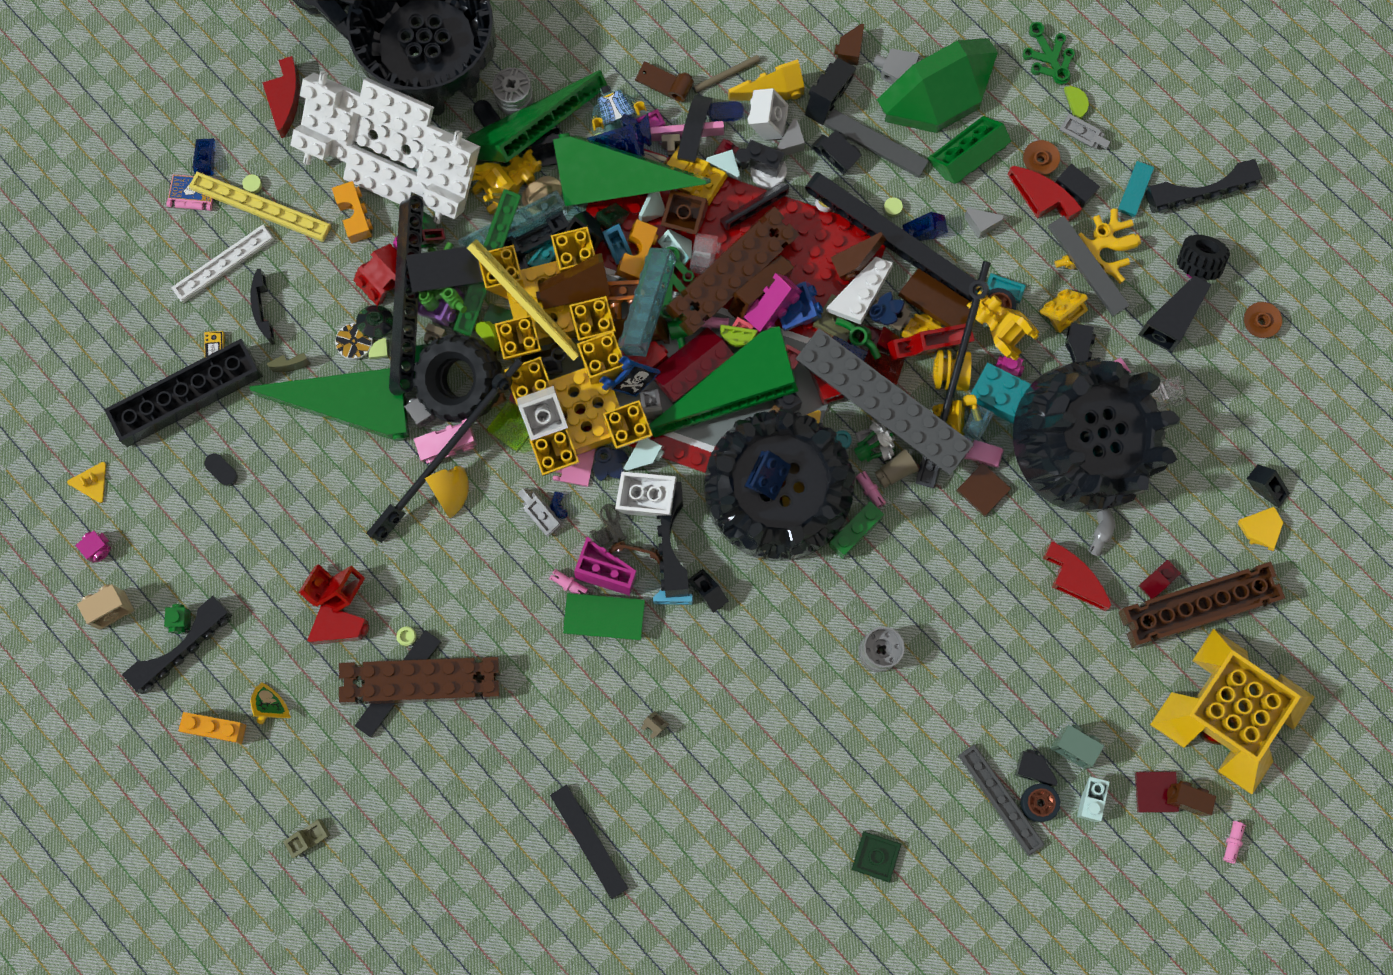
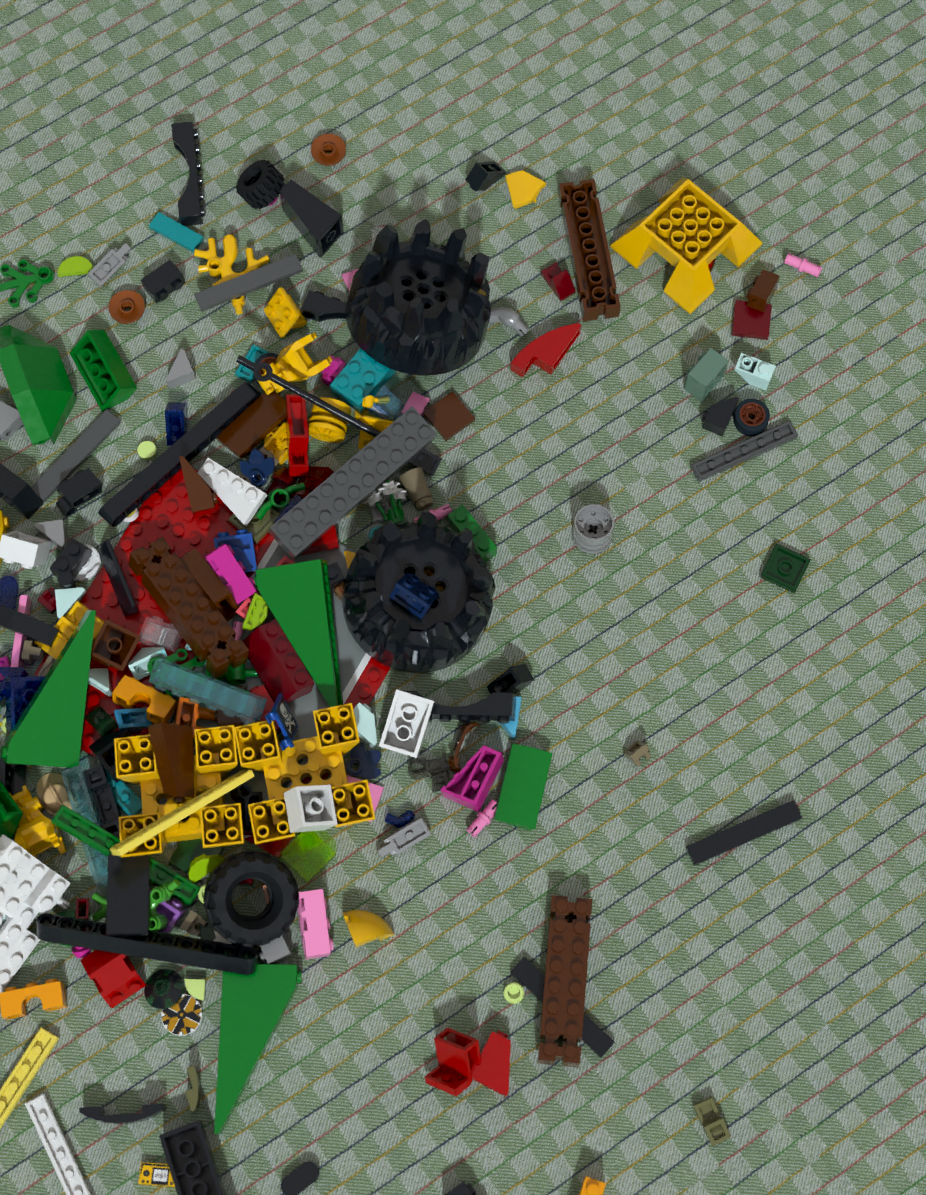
camera: 85 degrees left, 5 degrees down
(267, 703) = (567, 1147): shield -> none
(394, 514) = (383, 987): black bar -> none
(651, 403) = (304, 709): light grey slope -> none
(1043, 194) = (164, 312): red slope -> none

